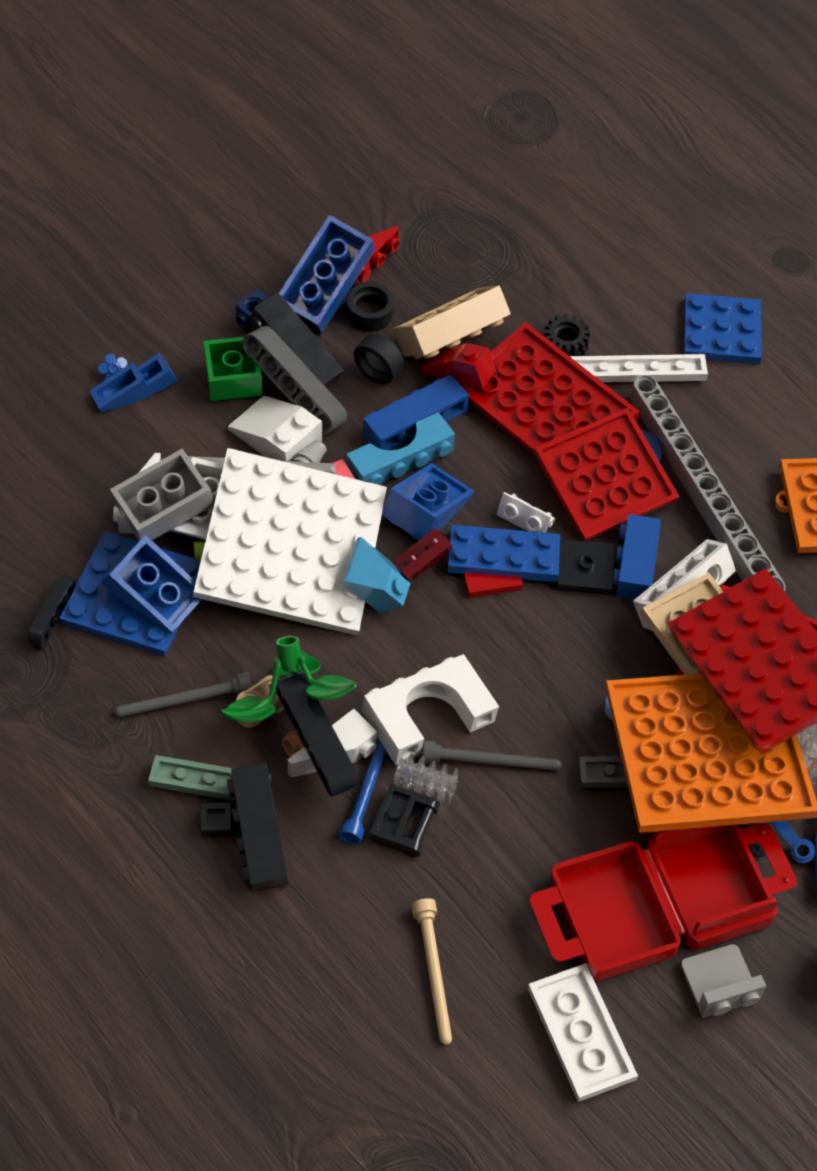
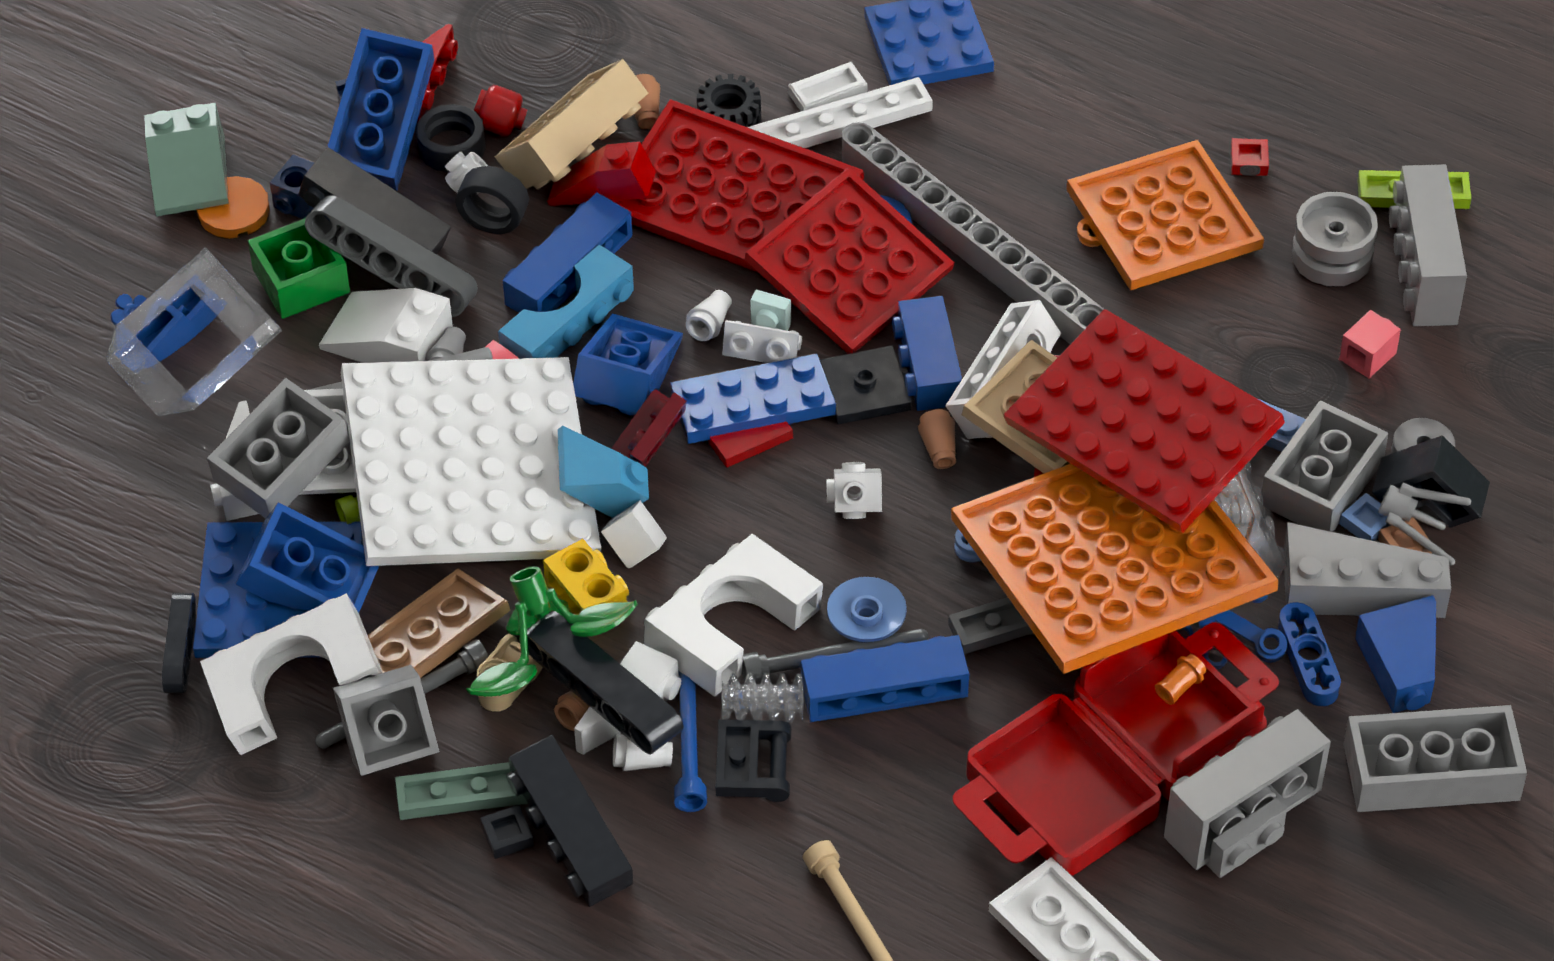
camera: 15 degrees left, 5 degrees down
(82, 646) = (242, 671): none -> white arch
(161, 712) = (386, 720): none -> light grey brick
(173, 379) = (226, 300): none -> clear wedge
(189, 271) = (186, 159): none -> sand green slope
(208, 313) = (245, 212): none -> orange tile
(215, 656) = (437, 624): none -> medium nougat tile
(320, 793) = (631, 757): none -> white cone
(334, 656) = (583, 577): none -> yellow brick
(369, 327) = (460, 166): none -> white gear
(385, 628) = (634, 534): none -> white panel
(410, 296) = (500, 110): none -> red head
(495, 485) = (707, 317): none -> white cone
(512, 321) = (649, 110): none -> nougat cone
(517, 789) = (884, 678): none -> blue brick
(527, 724) = (869, 598): none -> medium blue dish
(539, 494) = (770, 310): none -> light aqua plate
(555, 637) = (869, 497): none -> white brick
(622, 621) = (938, 435): none -> nougat cone
(640, 343) = (827, 87): none -> white tile
(725, 860) = (1189, 671): none -> orange pin
(769, 950) = (1278, 763): none -> light grey brick

